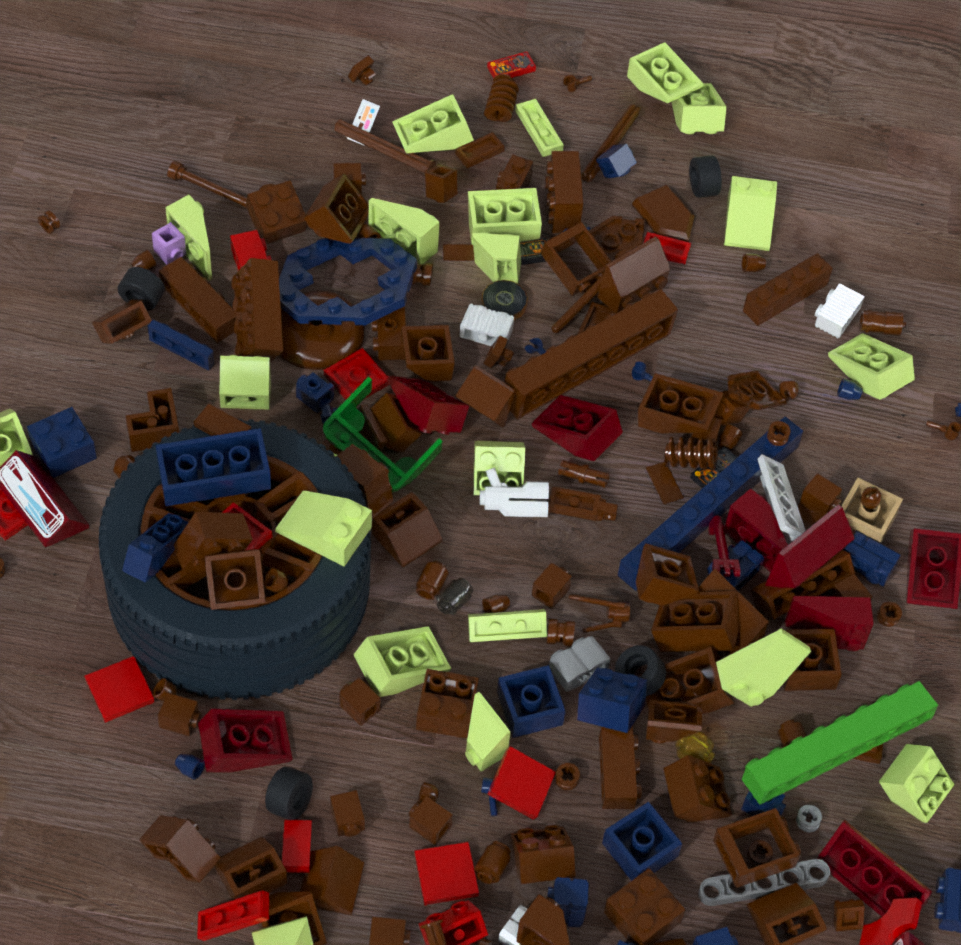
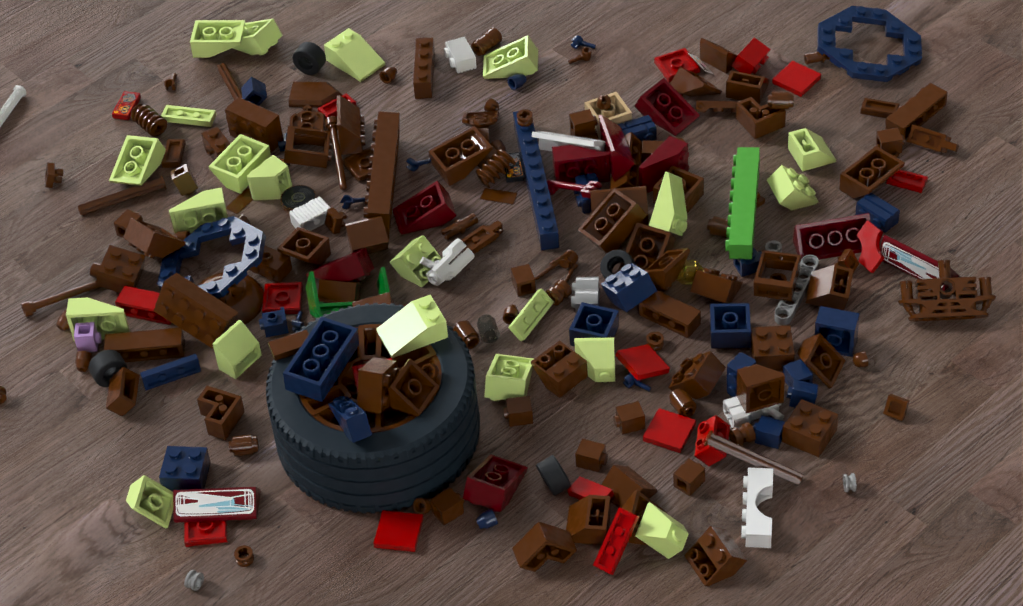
camera: 45 degrees left, 10 degrees down
(365, 116) = (92, 190): white sticker -> none
(428, 790) = (608, 411): reddish brown hinge -> none
(665, 576) = (571, 219): reddish brown slope -> none

